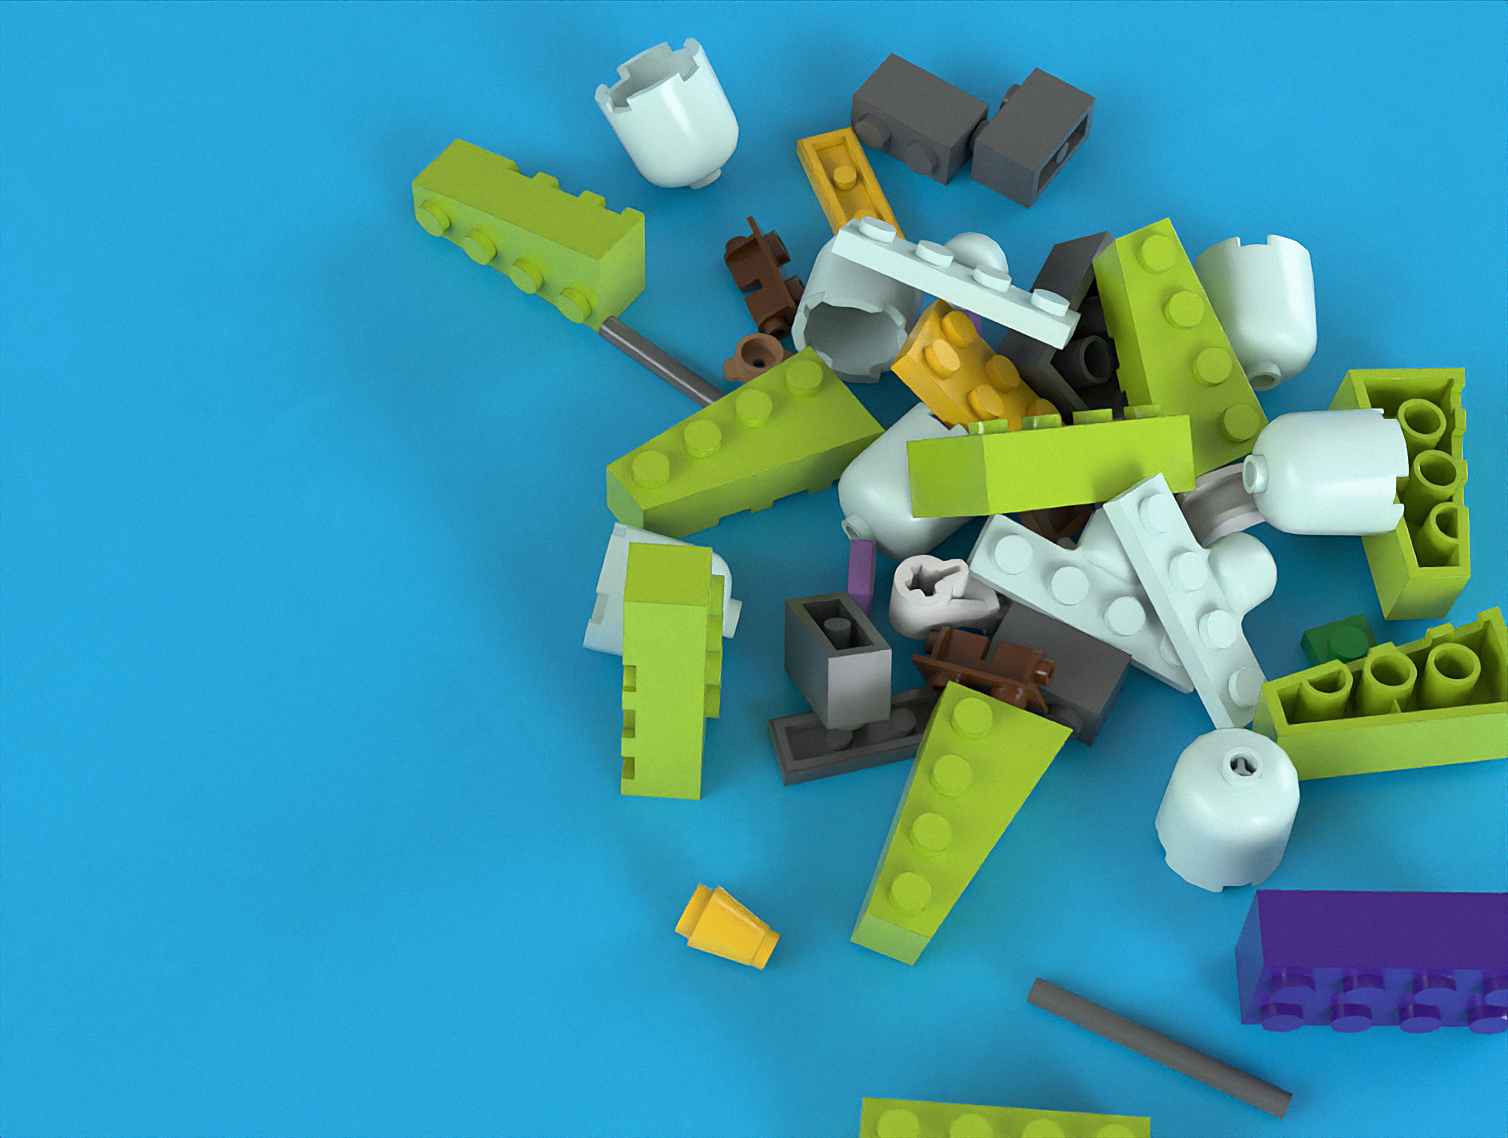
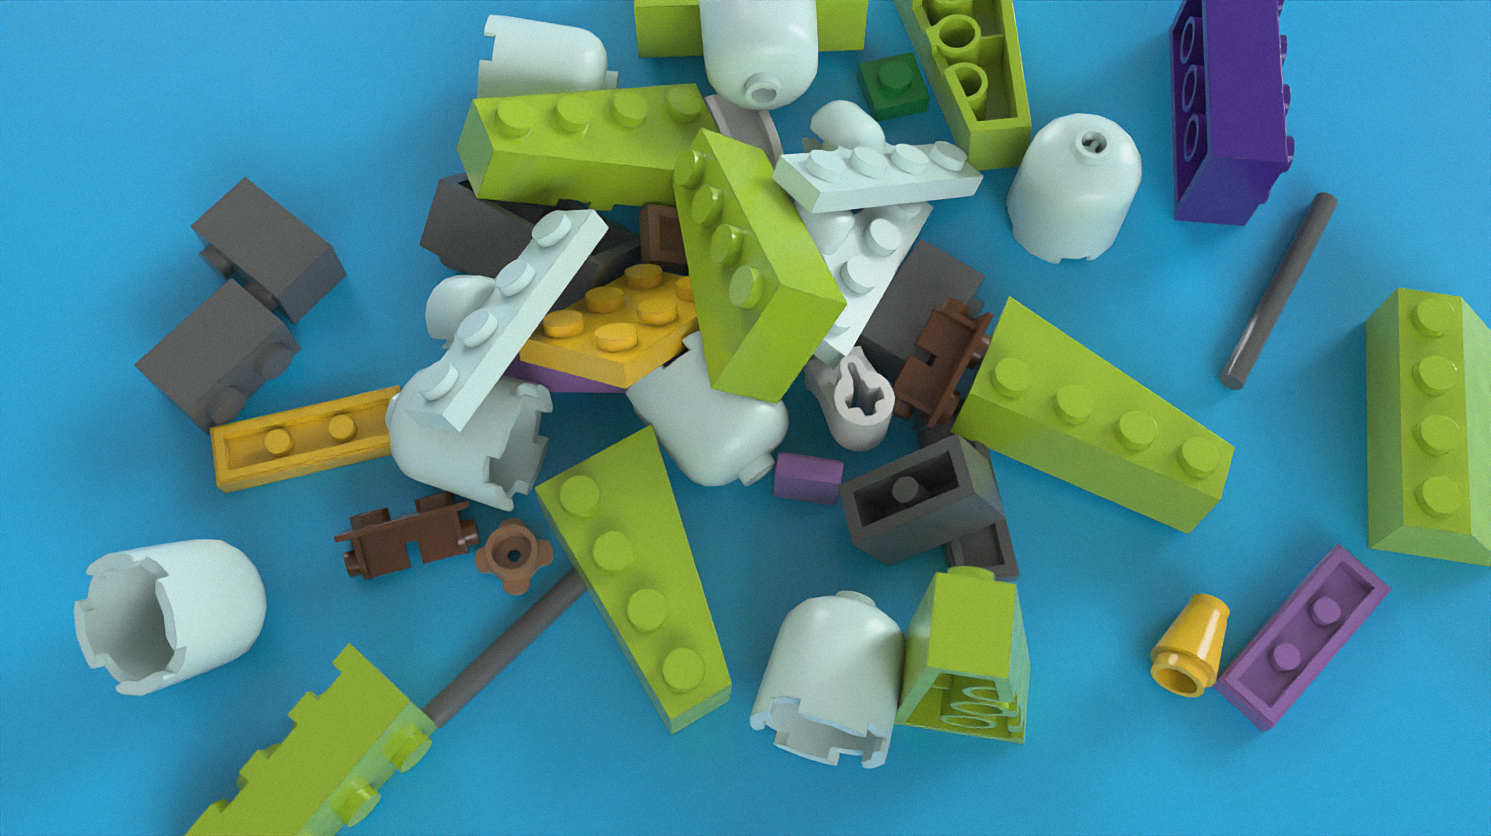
camera: 85 degrees left, 10 degrees up
(750, 1045) = (1301, 638): none -> medium lavender tile

